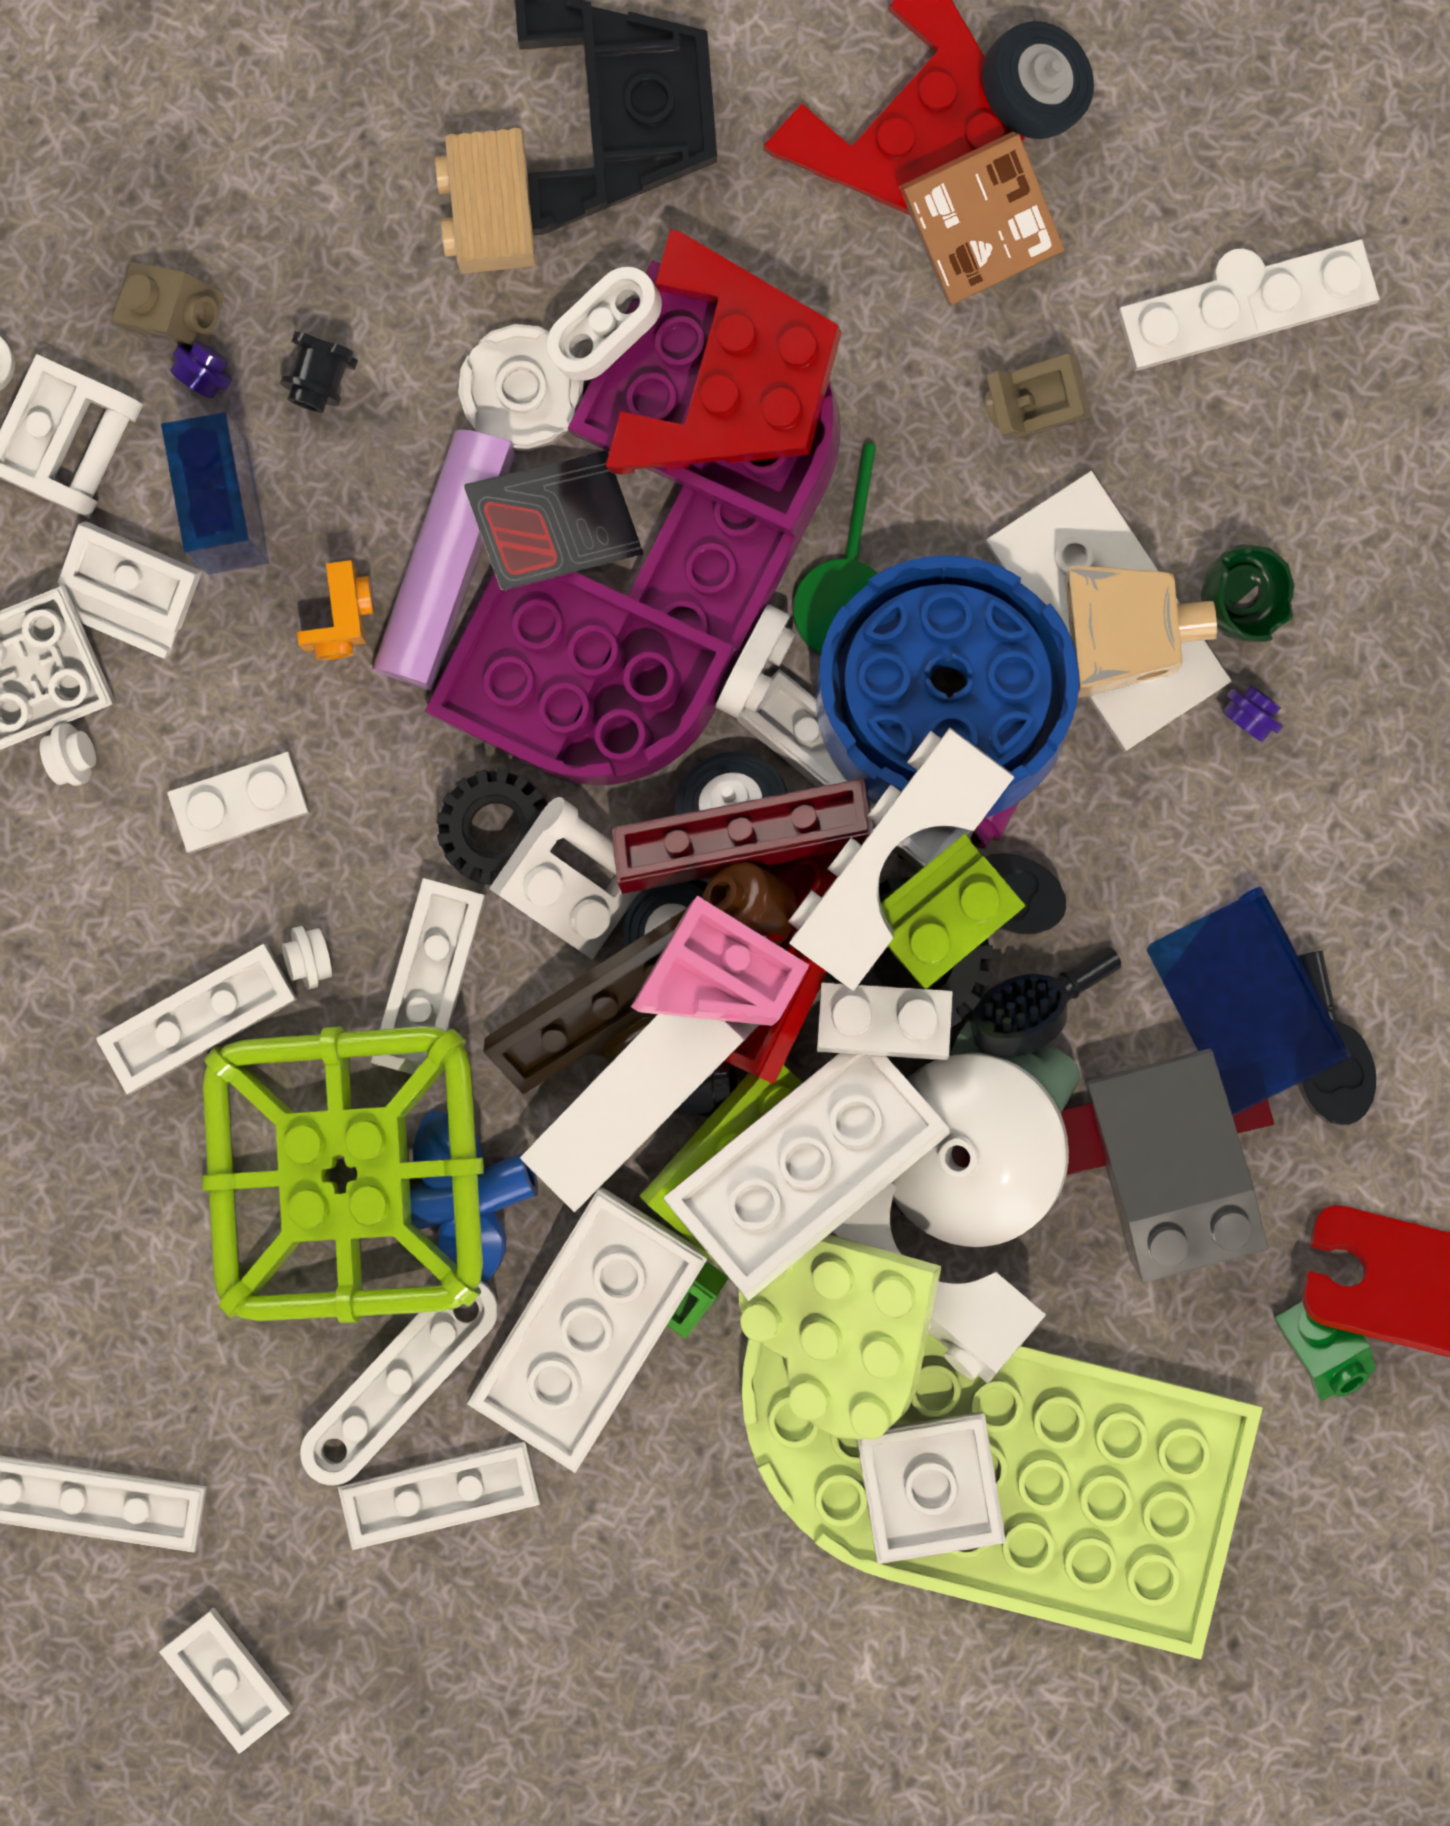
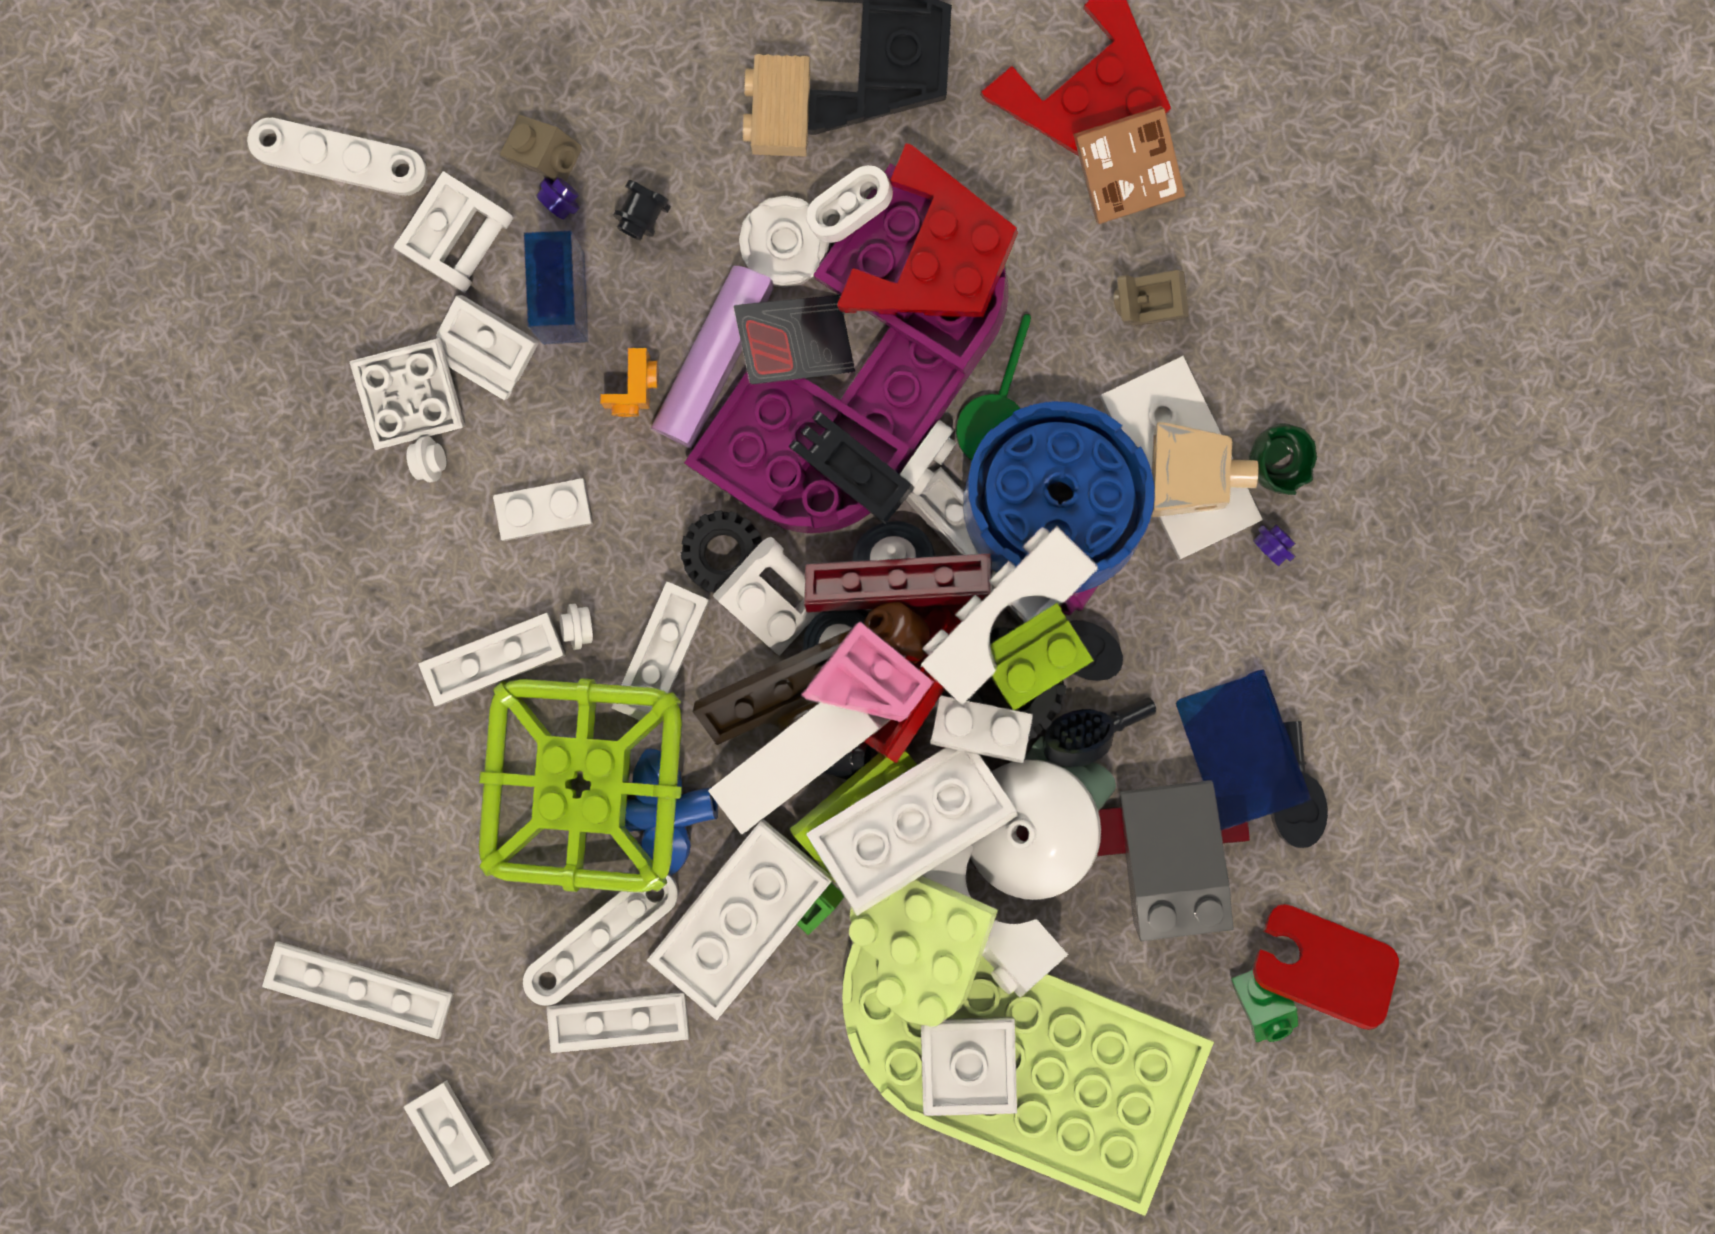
camera: 15 degrees right, 0 degrees up
(659, 687) = (853, 468): none -> black hinge
(1037, 80) = (1183, 71): black wheel -> none
(1247, 302) = (1311, 251): white hinge -> none

